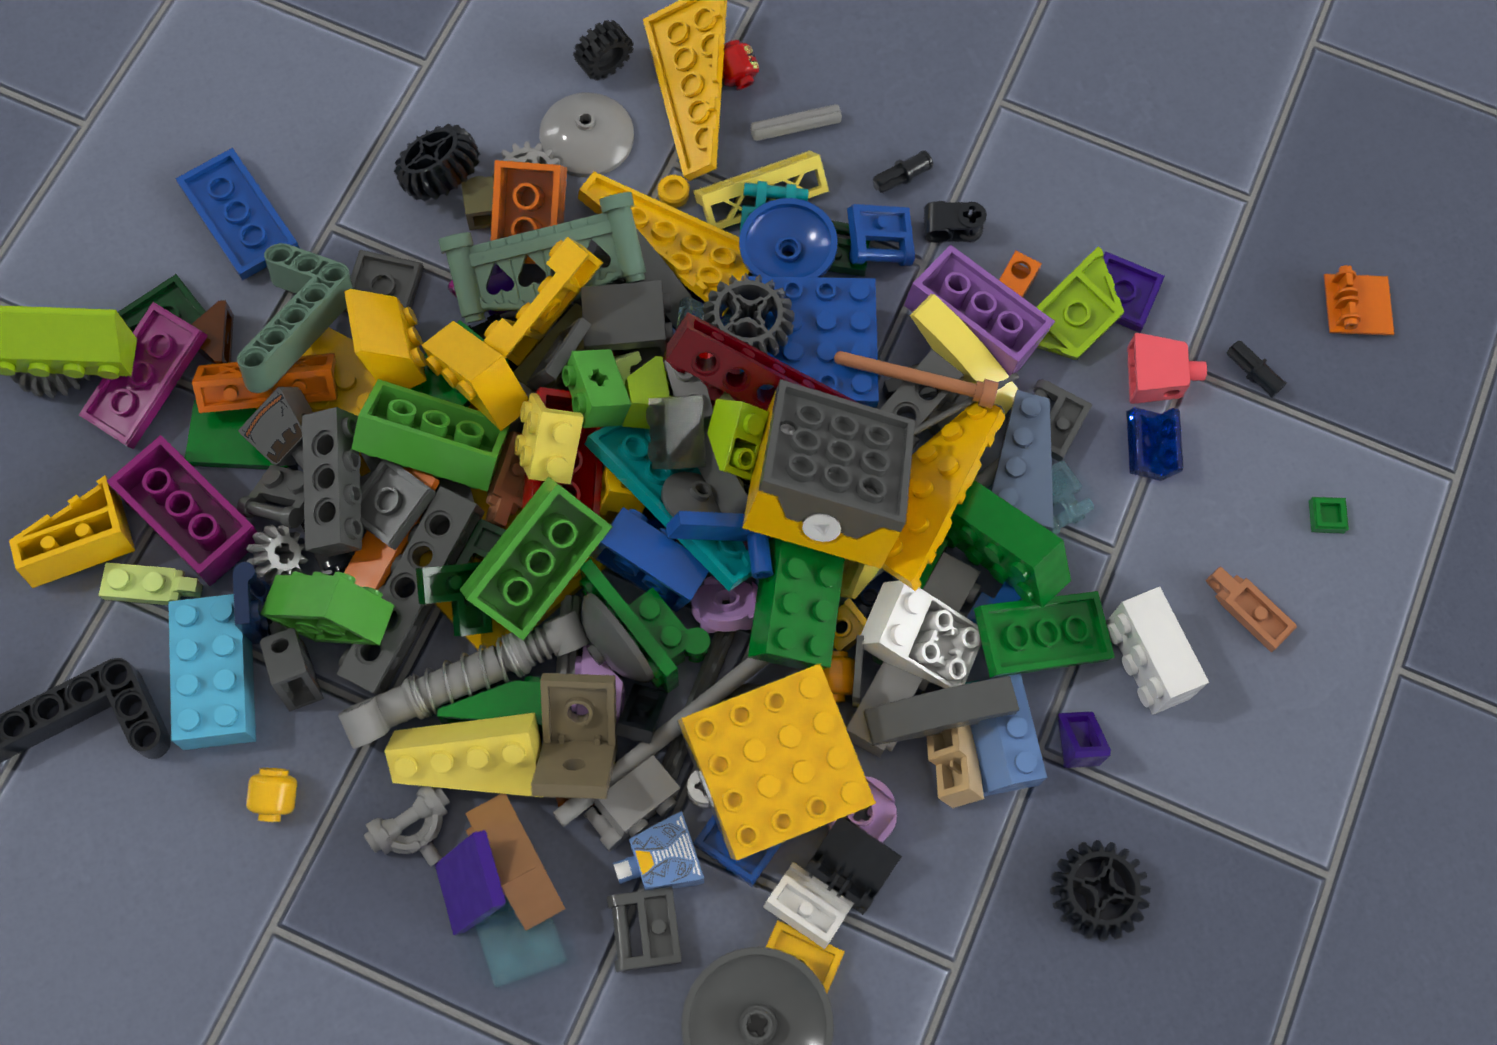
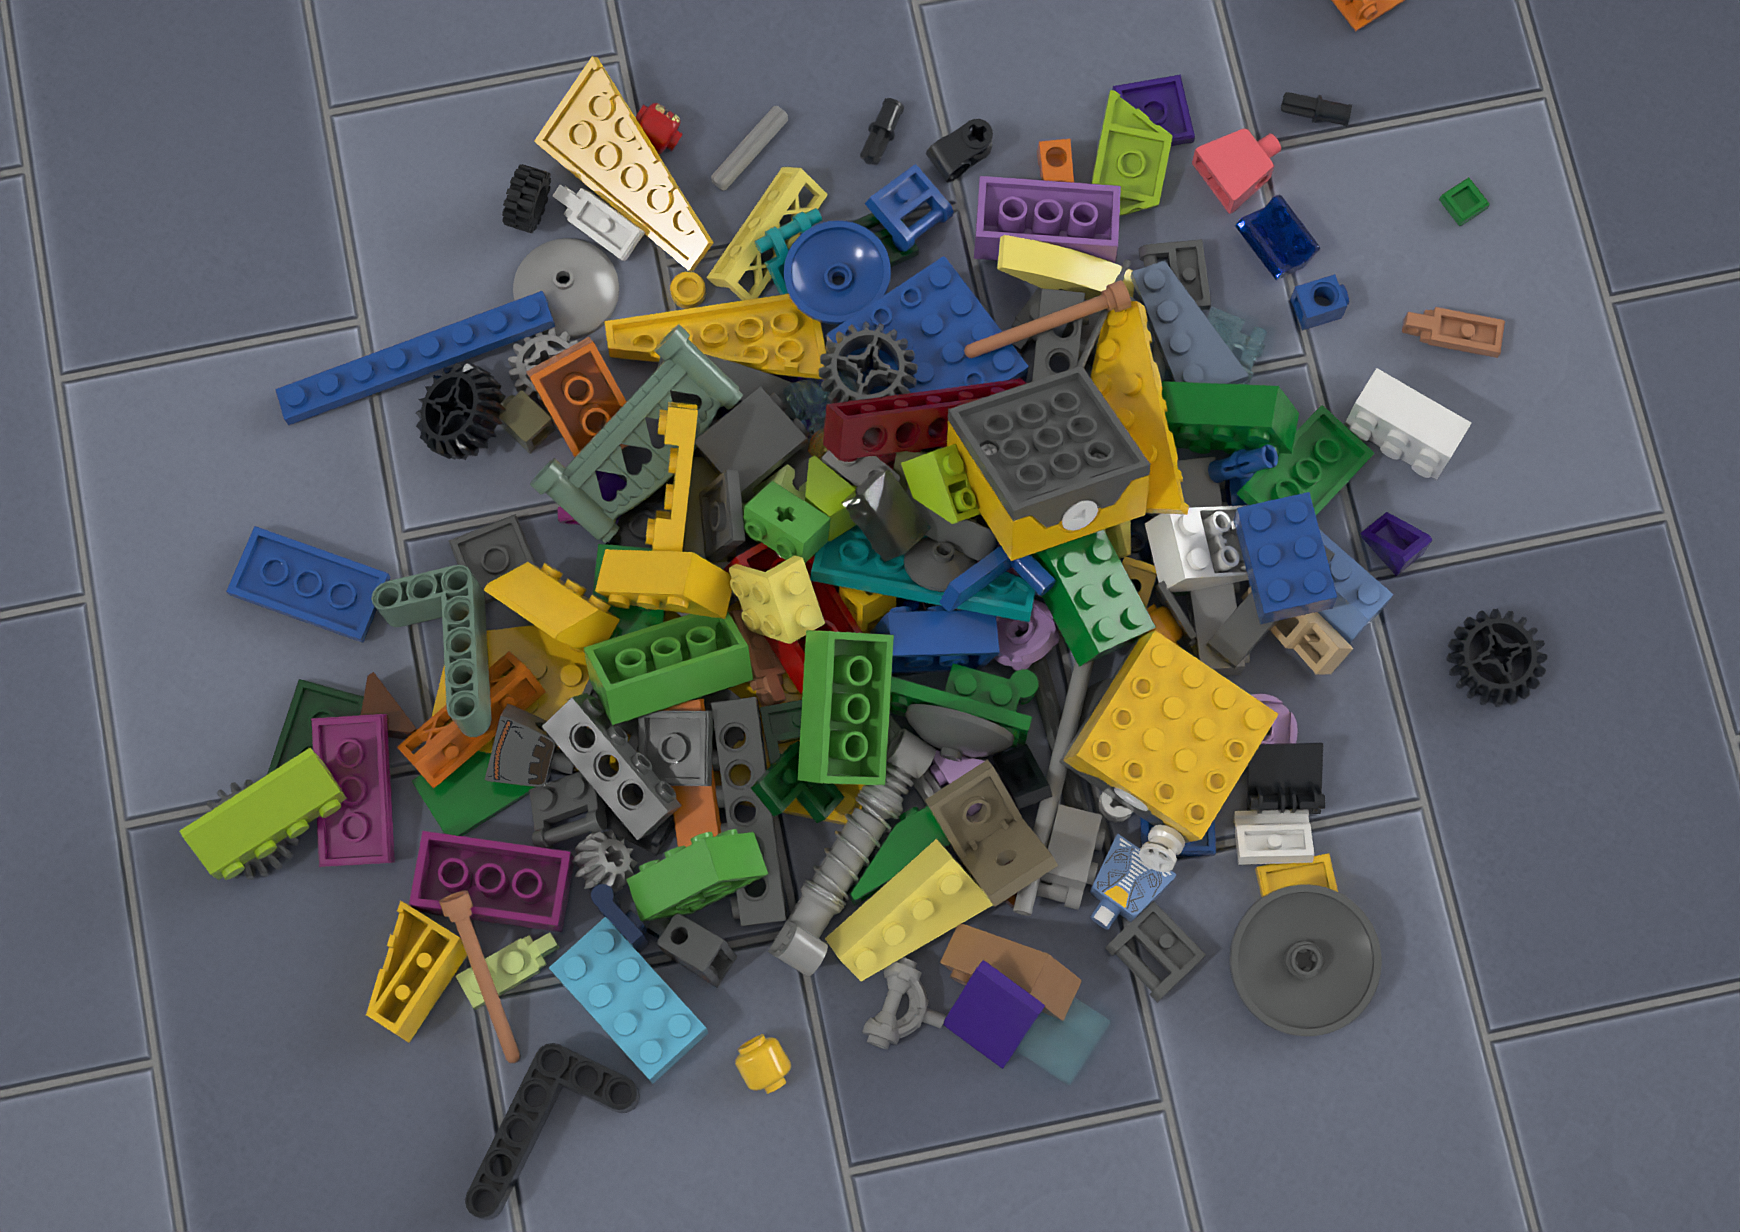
camera: 30 degrees left, 5 degrees up
(133, 509) = (458, 910): none -> nougat piece
(439, 108) = (415, 358): none -> blue plate
(646, 102) = (600, 221): none -> white hinge
(705, 847) = (1162, 848): none -> white wheel
(972, 682) = (1285, 558): none -> blue brick
(1008, 590) = (1258, 460): none -> blue pin
(1142, 520) = (1312, 314): none -> blue brick

